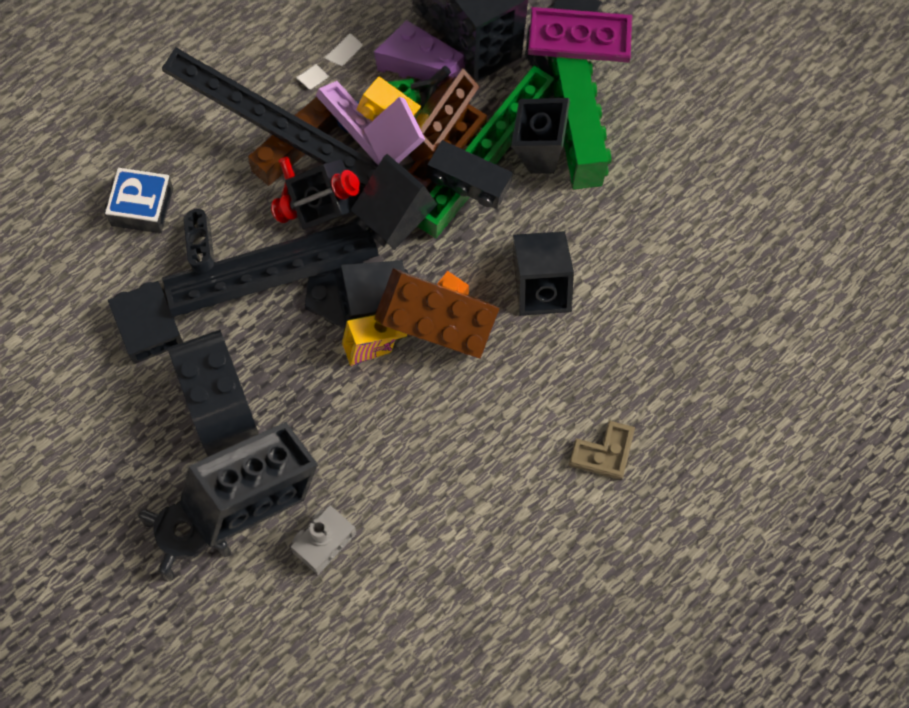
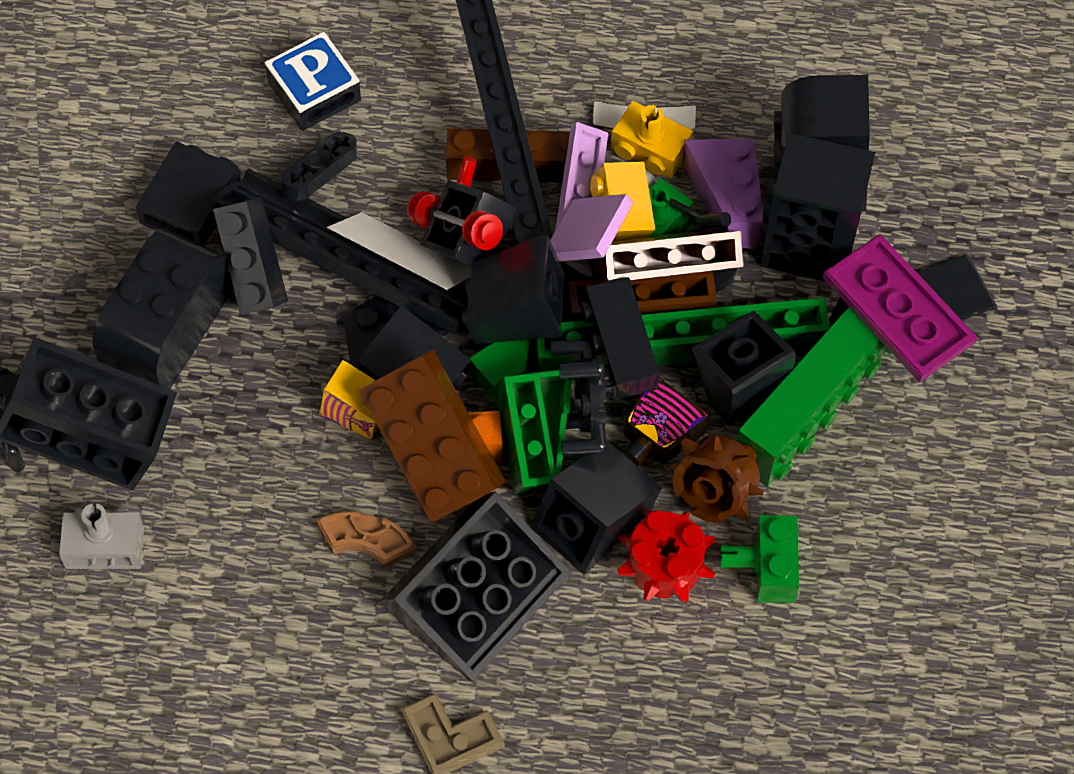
camera: 50 degrees right, 5 degrees down
(228, 317) = (250, 255): none -> black brick
(297, 240) = (402, 250): none -> white sticker
(352, 67) = (650, 139): none -> yellow brick
(419, 252) = (500, 361): none -> green slope
(448, 398) = (367, 534): none -> medium nougat tile
(474, 262) = (533, 426): none -> green wedge
(487, 217) = (590, 389): none -> black plate
(525, 203) = (661, 423): none -> torso
(532, 368) = (476, 585): none -> black slope
(586, 200) = (717, 478): none -> reddish brown brick
(602, 261) = (669, 575): none -> red brick
(650, 214) = (772, 558): none -> green brick

